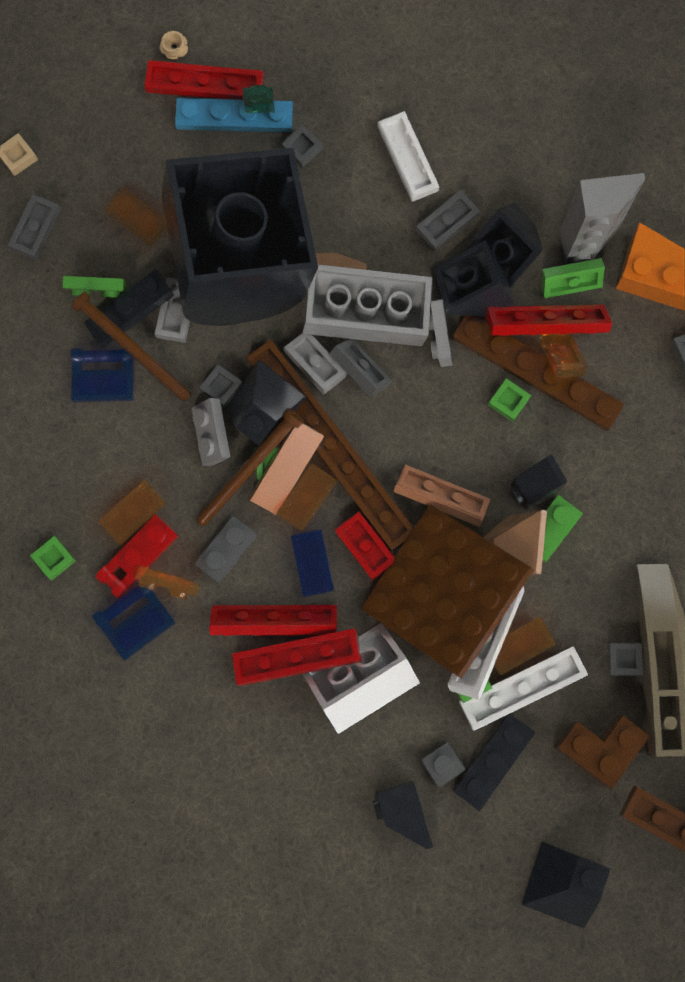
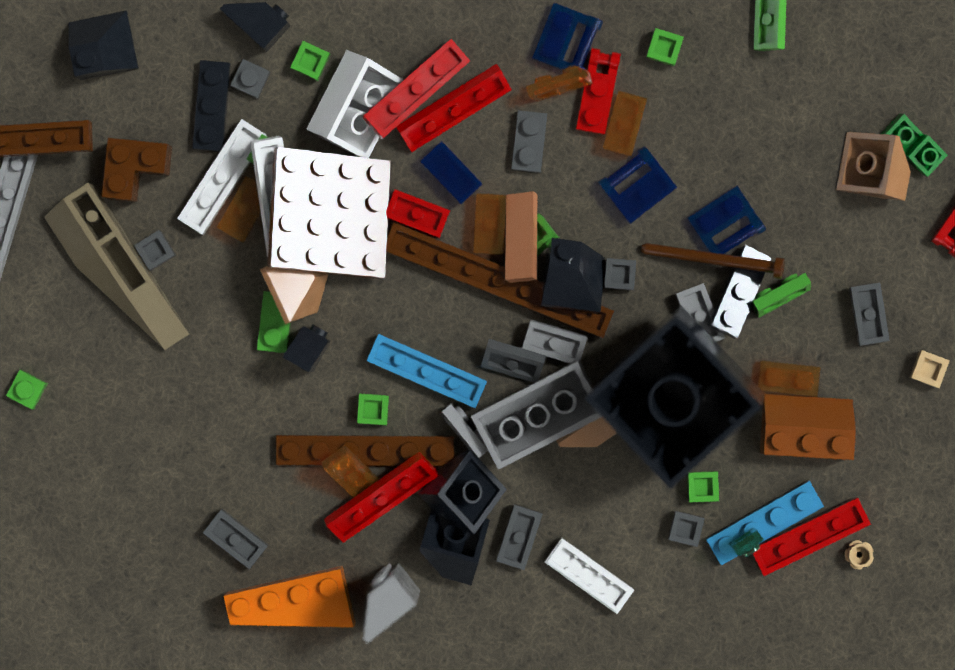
camera: 145 degrees right, 10 degrees up
(137, 160) = (808, 427): none -> dark orange slope
(156, 442) = (644, 192): none -> clear blue plate
(210, 432) = (602, 229): light grey plate -> none
(290, 420) = (537, 272): reddish brown bar -> none
(377, 745) = (310, 60): none -> bright green plate
(442, 405) = (426, 371): none -> dark azure plate
(442, 495) = (380, 294): nougat tile -> none
(572, 278) = (388, 543): bright green plate -> none

